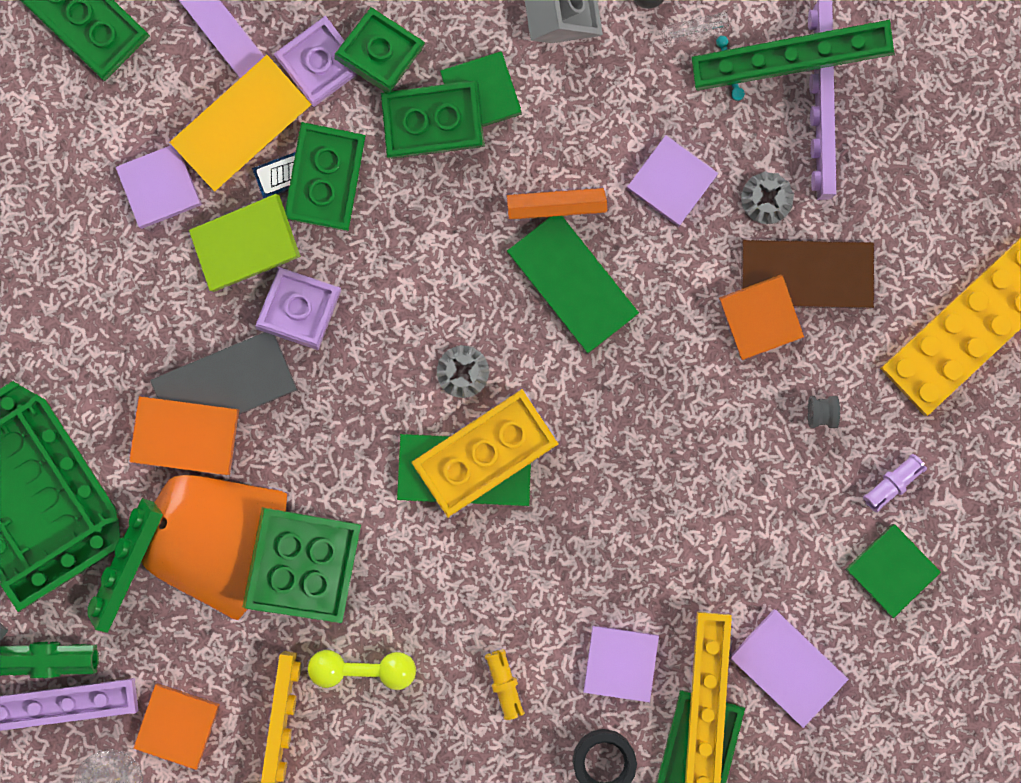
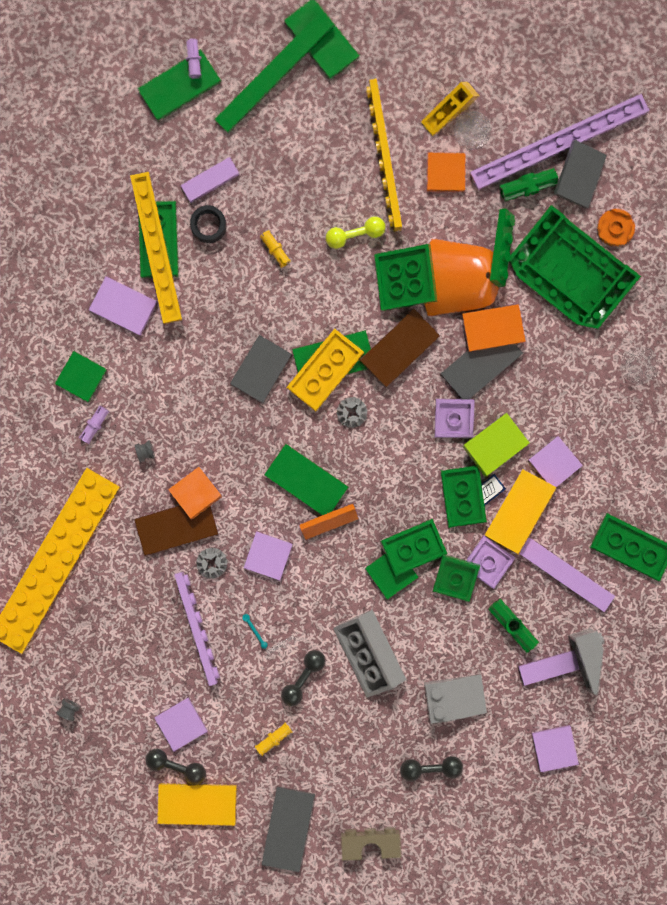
camera: 160 degrees right, 0 degrees up
(350, 451) = (399, 348): none -> reddish brown tile
(590, 489) = (261, 369): none -> dark grey tile
(621, 663) = (215, 280): lavender tile -> none
(793, 55) = (221, 646): green tile -> none

